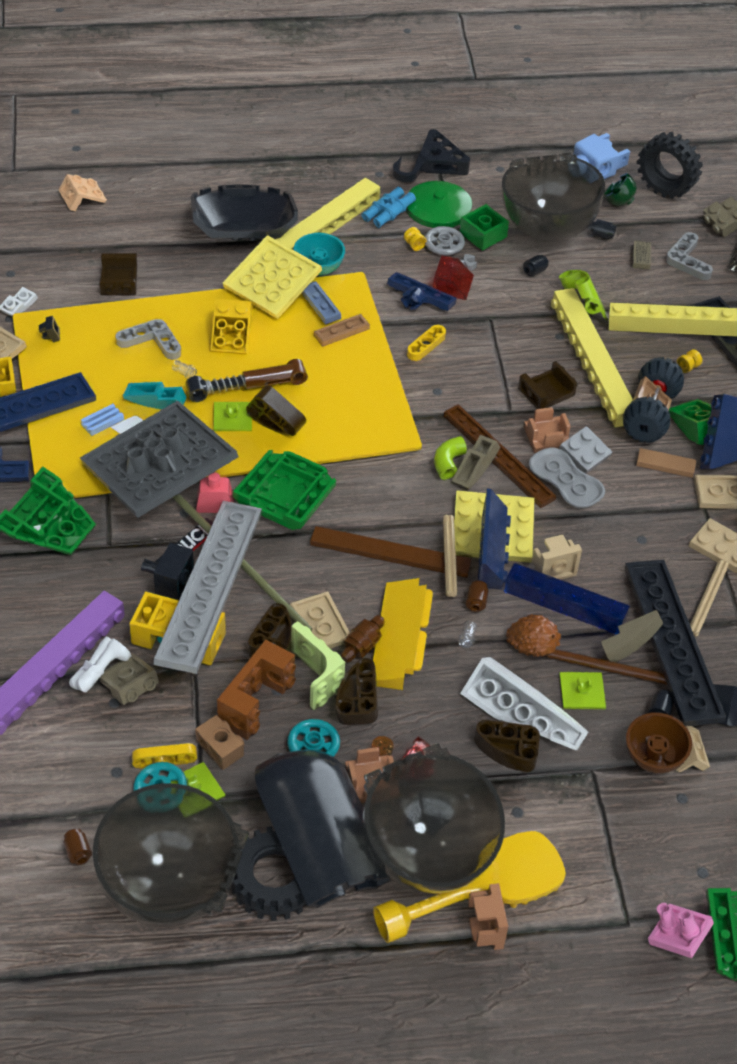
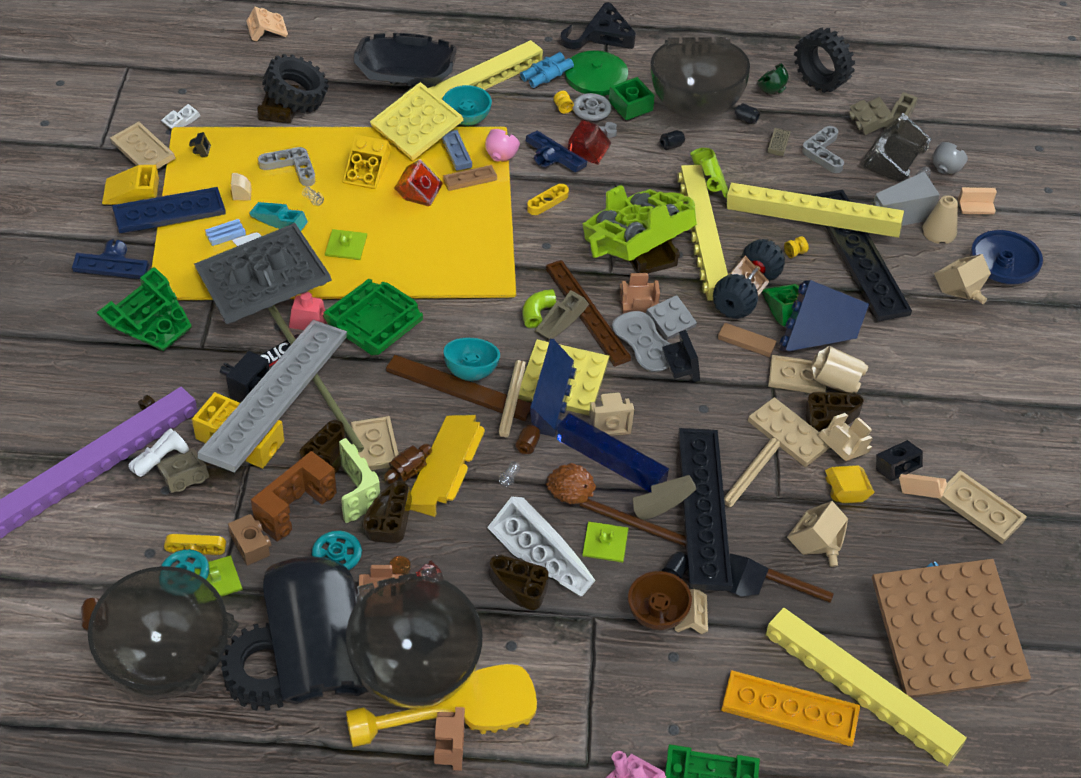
camera: 10 degrees right, 0 degrees up
(69, 613) = (146, 402): none -> dark brown bush
(106, 370) = (240, 187): none -> tan brick
(138, 239) = (300, 72): none -> black tyre
(275, 412) = (383, 245): dark brown beam -> none
(291, 342) = (418, 184): none -> clear red slope
(291, 372) = (412, 210): piece -> none
(367, 292) = (500, 145): none -> bright pink cylinder
(398, 519) = (471, 358): none -> teal piece
(528, 355) = (638, 222): none -> lime piece
(599, 151) = (760, 45): light blue piece -> none
(611, 489) = (682, 358): none -> black bracket

